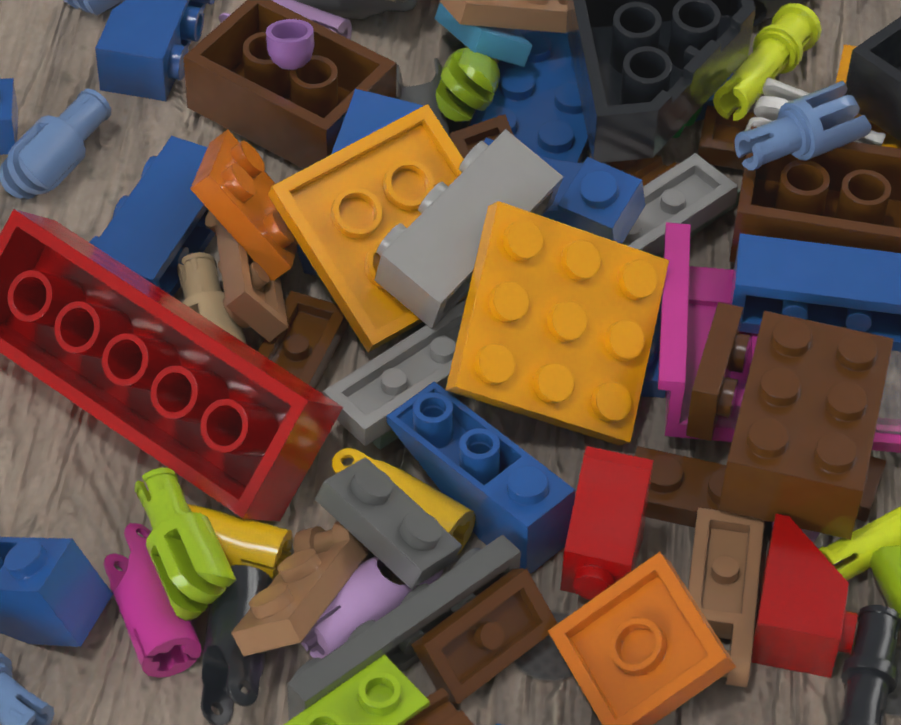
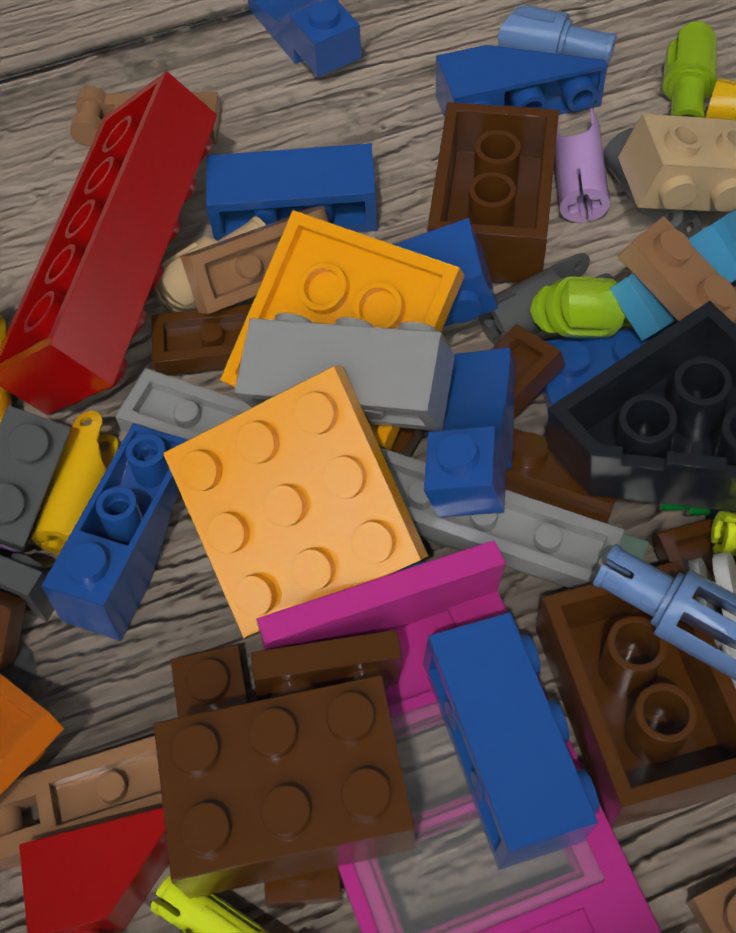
camera: 70 degrees right, 10 degrees up
(52, 147) = (334, 91): medium blue arm -> none
(236, 193) = (323, 190): orange plate -> none
(290, 43) = (494, 150): medium lavender hinge -> none
(605, 521) = (92, 658): red slope -> none

